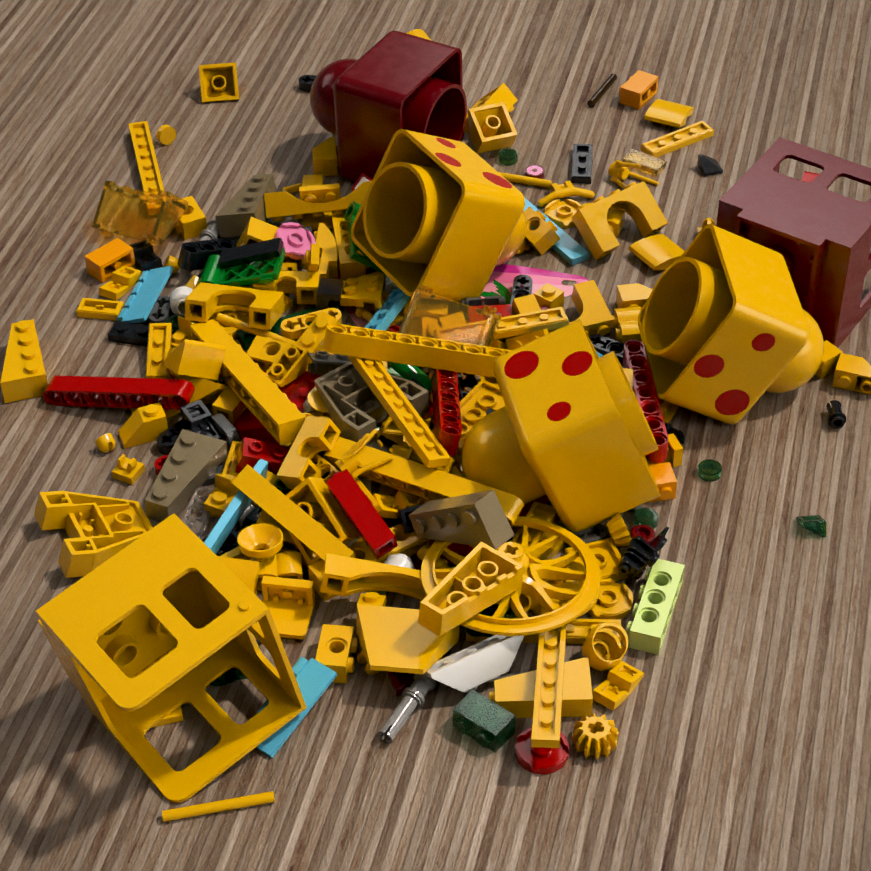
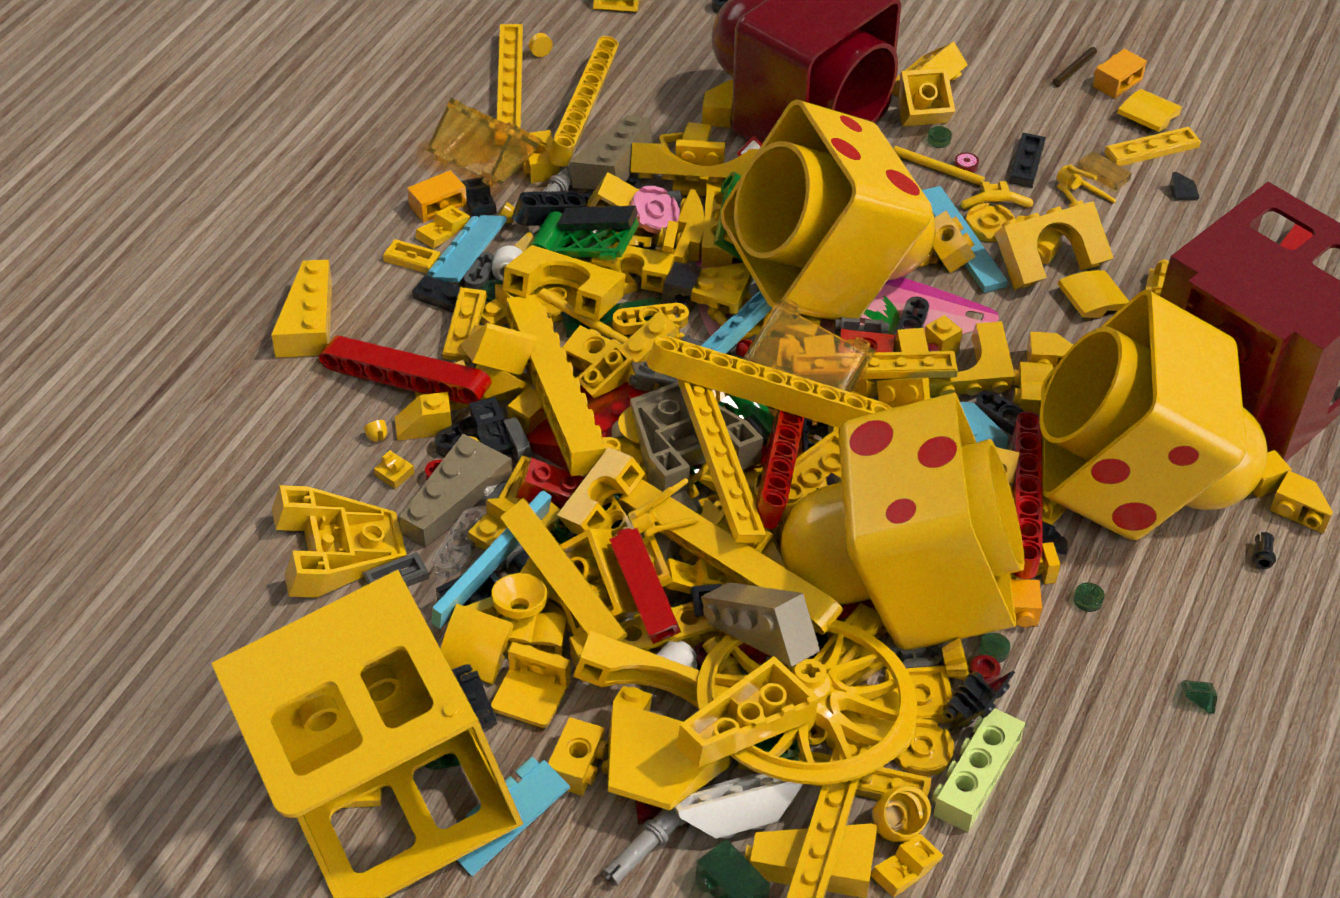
camera: 10 degrees right, 5 degrees up
(214, 170) = (583, 101): none -> yellow beam

